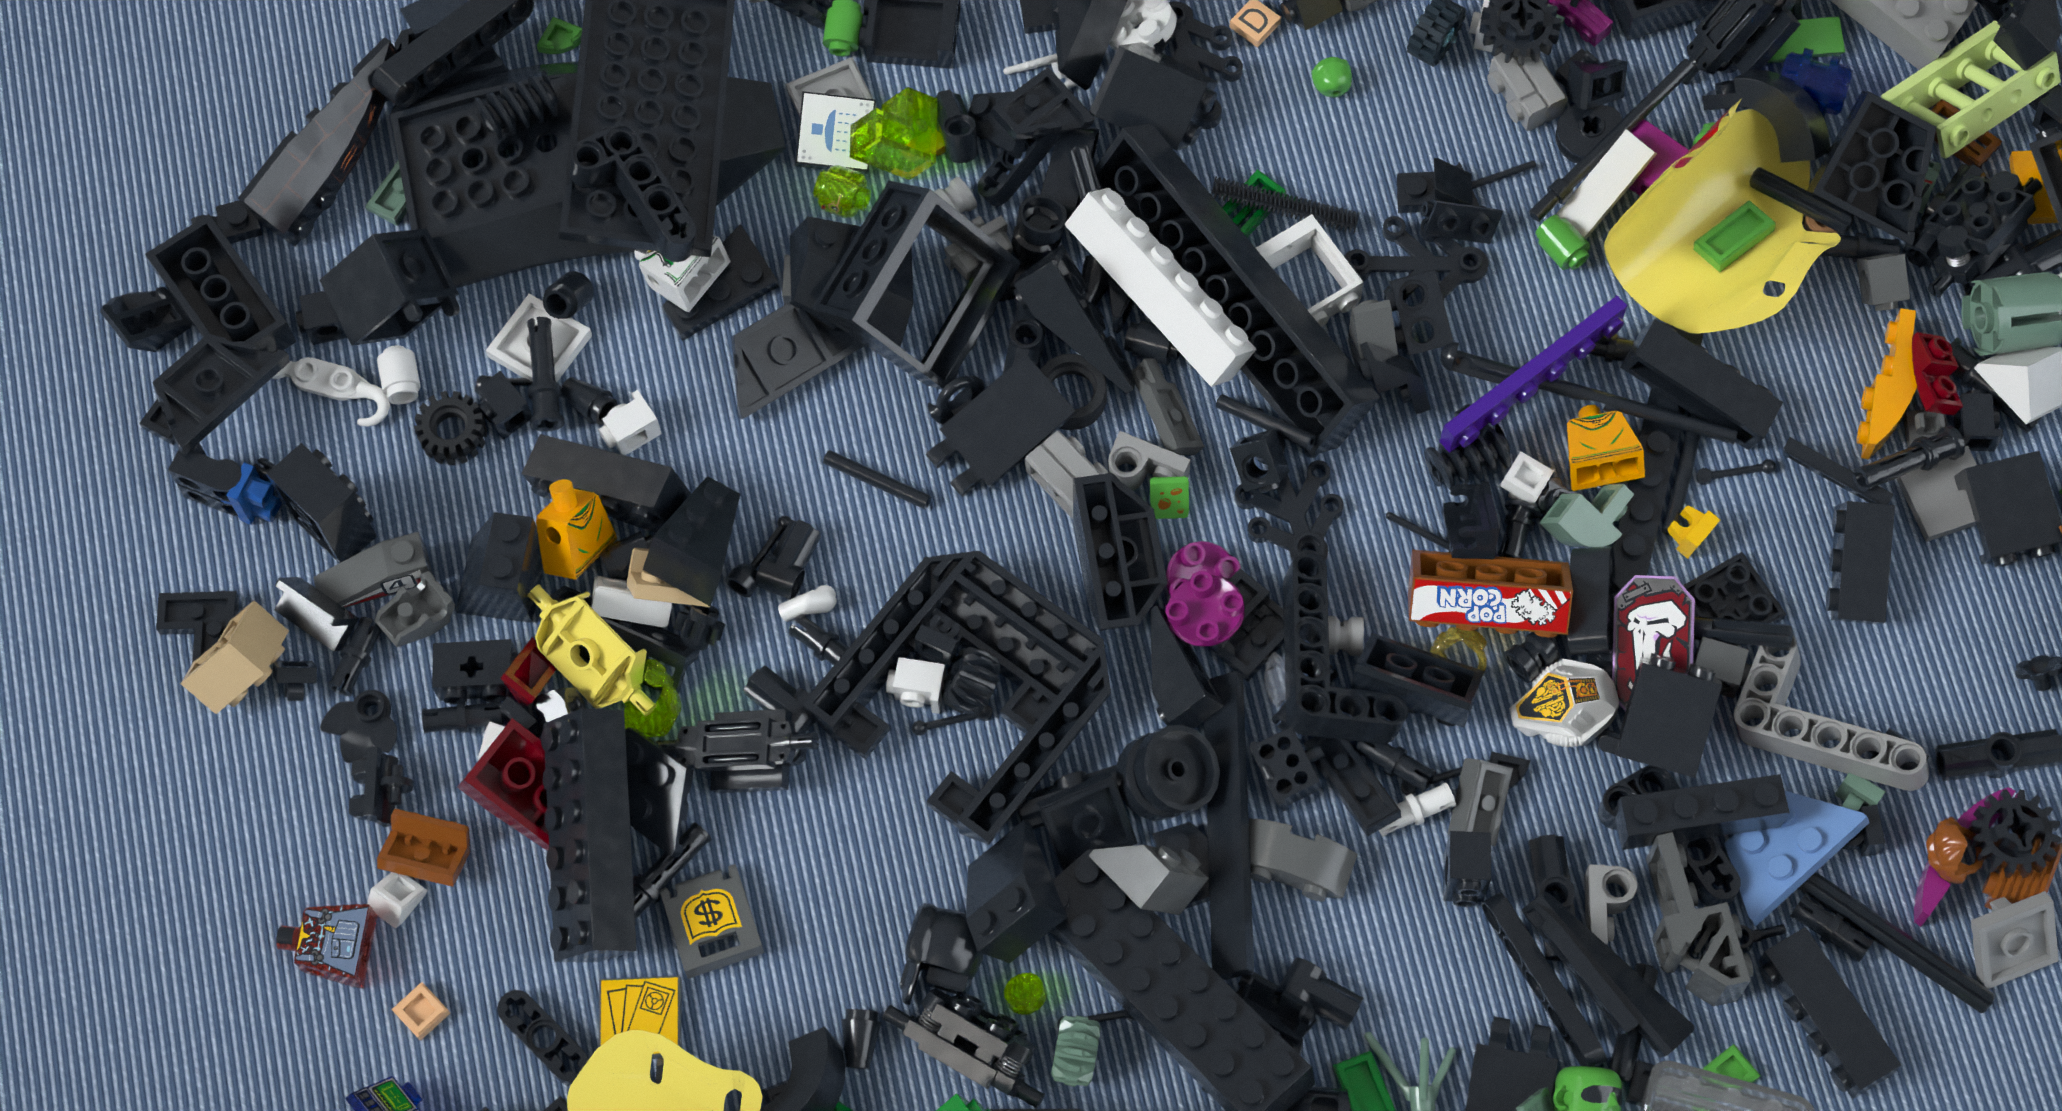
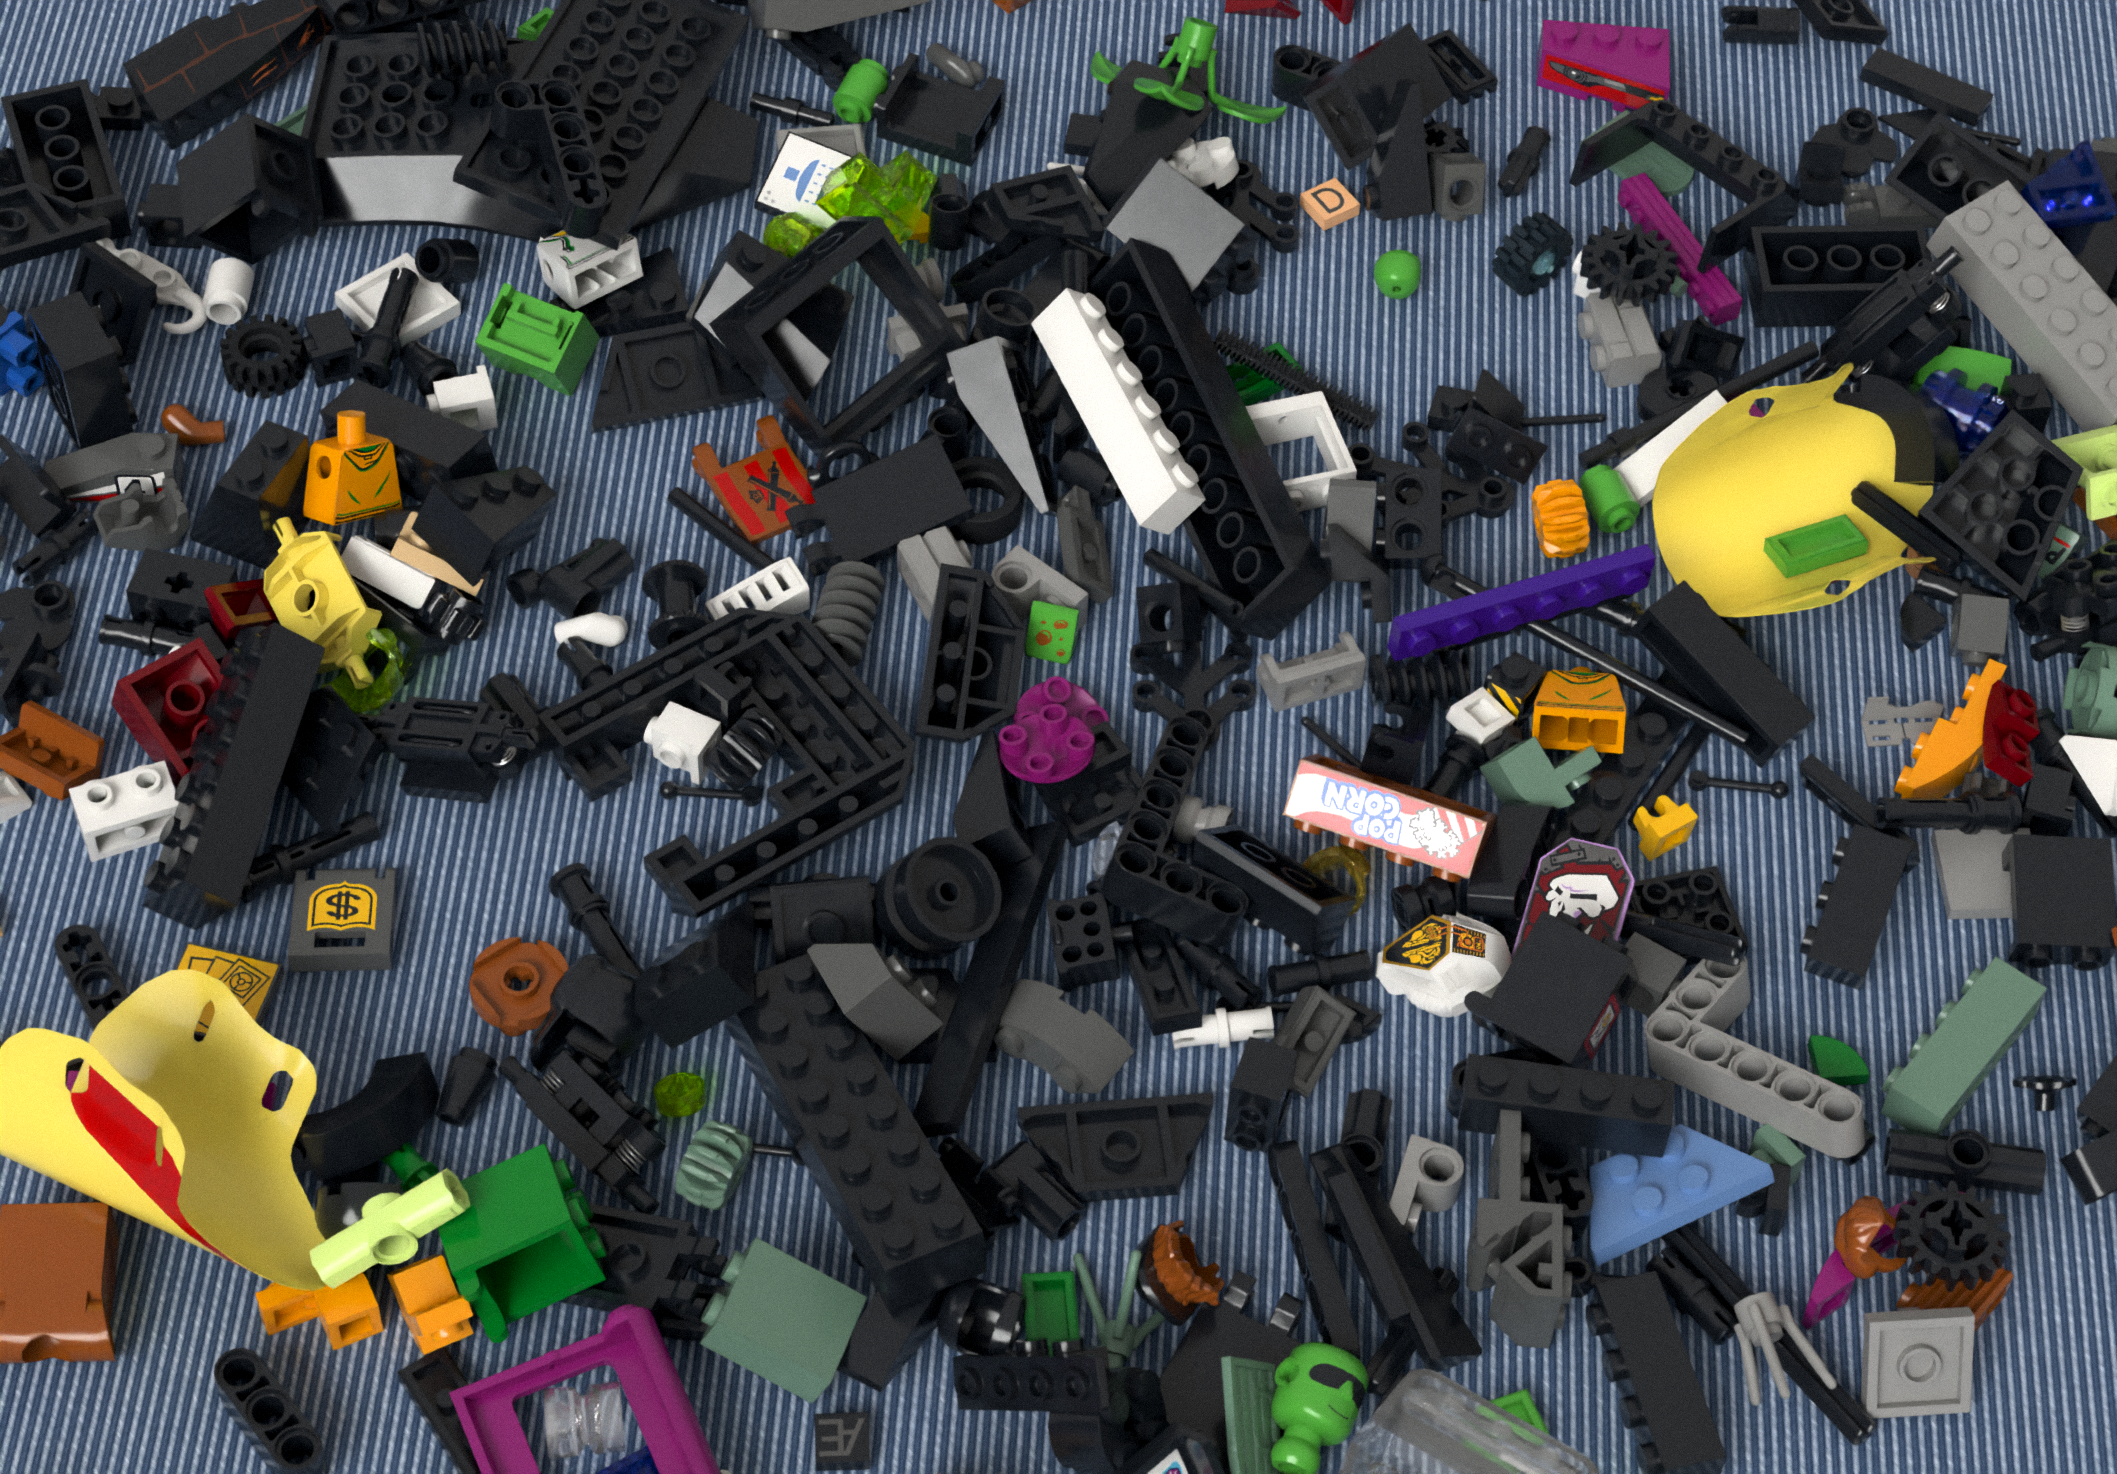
camera: 10 degrees right, 15 degrees down
(310, 418) = (118, 292): none -> black tile
(415, 513) = (192, 432): none -> dark orange arm
(506, 878) = (124, 809): none -> white brick
(669, 352) = (536, 341): none -> bright green piece
(791, 60) = (791, 110): none -> black bar
(865, 914) = (491, 983): none -> dark orange plate
(869, 564) = (675, 588): none -> black hose
(894, 430) = (757, 487): none -> flag
(900, 859) = (590, 914): none -> black pin
(929, 517) = (767, 581): none -> white slope
(1000, 528) = (848, 608): none -> dark grey piece
(1369, 934) = (1119, 1144): none -> black wing
(1381, 471) = (1312, 675): none -> light grey hinge
(1450, 1036) = (1173, 1274): none -> dark orange hair
(1472, 739) = (1319, 971): none -> black pin
(1533, 276) = (1560, 518): none -> light orange gear
(1543, 440) = (1516, 685): none -> black brick
(1831, 281) = (1918, 622): none -> black tile
(1839, 384) = (1879, 709): none -> light grey piece
(1864, 58) = (2028, 398): none -> black brick
(1878, 695) = (1836, 1061): none -> green tile
(1892, 942) = (1762, 1323): none -> light grey plant
(1972, 658) = (1962, 1049): none -> sand green brick

